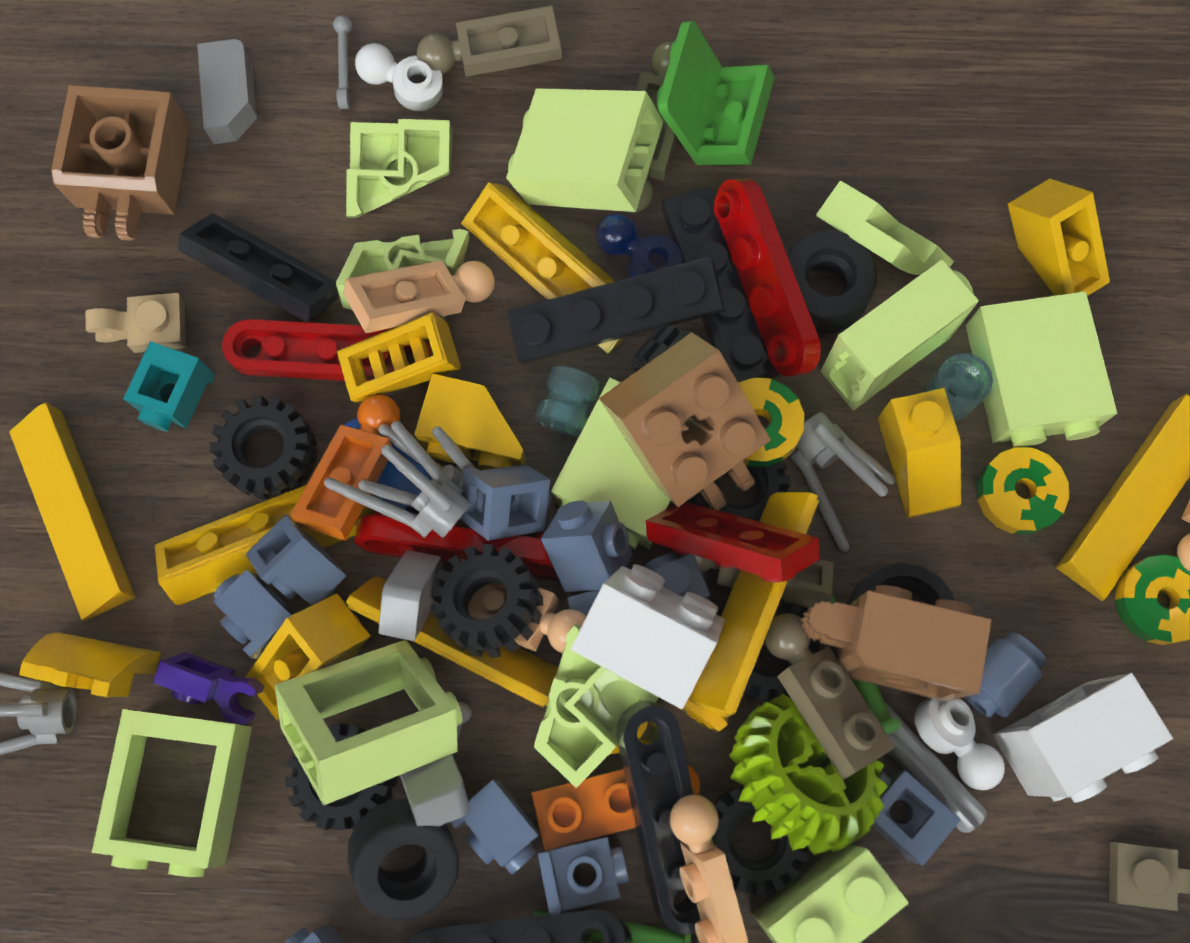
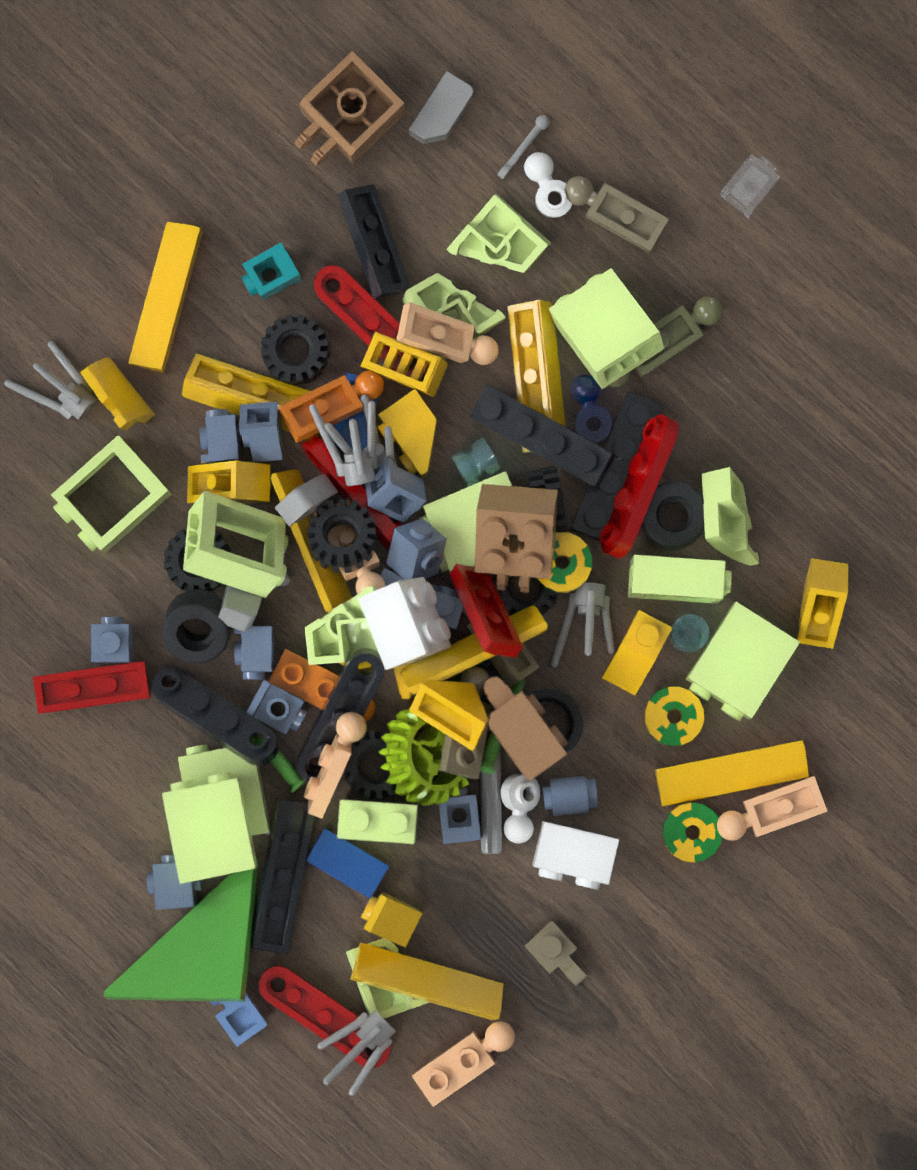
camera: 40 degrees right, 10 degrees up
(147, 319) = (289, 221): tan plate -> none
(200, 680) = (166, 451): dark purple plate -> none
(712, 106) = (704, 359): bright green bracket -> none
(800, 690) = (452, 710): none -> yellow slope

